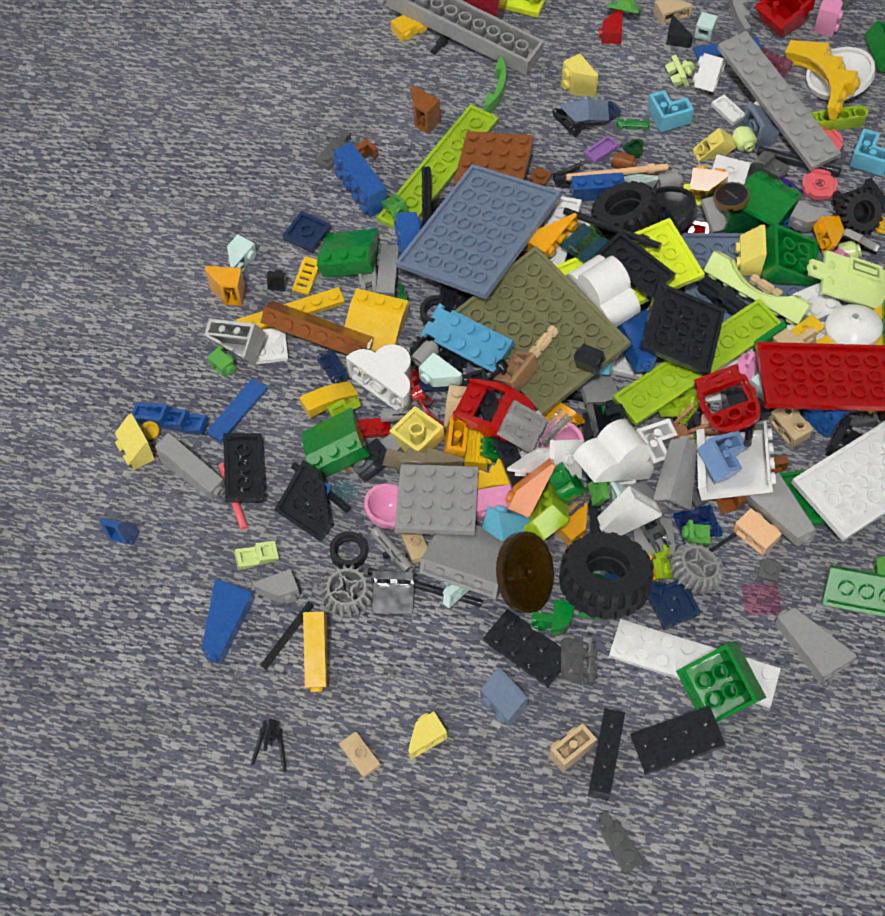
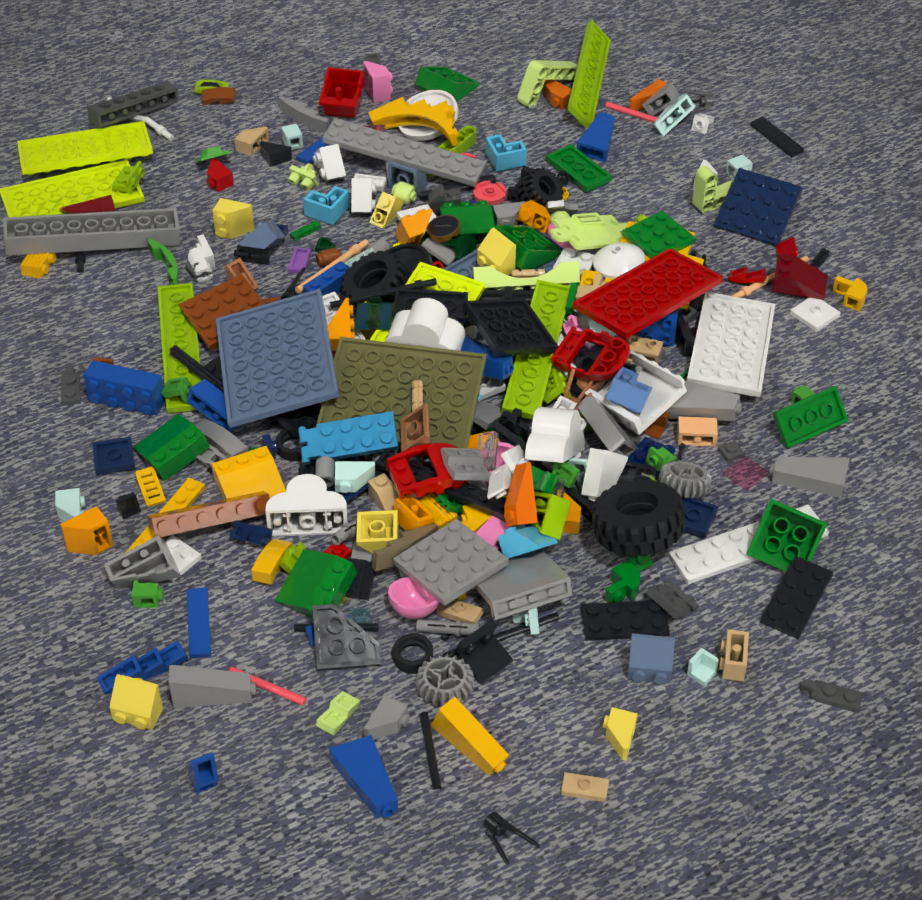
camera: 45 degrees left, 15 degrees down
(243, 467) = (256, 656): black plate -> none
(415, 302) = (271, 445): none -> dark blue plate
(418, 394) = (356, 499): red plant -> none
(425, 110) = (123, 309): dark orange slope -> none
(501, 366) = (404, 436): black hand -> none
(524, 572) = (574, 561): dark brown dish -> none
(525, 100) = (201, 260): none -> white plate
(538, 128) = (237, 268): none -> nougat slope
(539, 735) = (702, 667): none -> light aqua panel
(589, 359) = (469, 383): black brick -> none
(606, 754) = (775, 656): black arch -> none
(704, 119) = (362, 196): none -> white brick

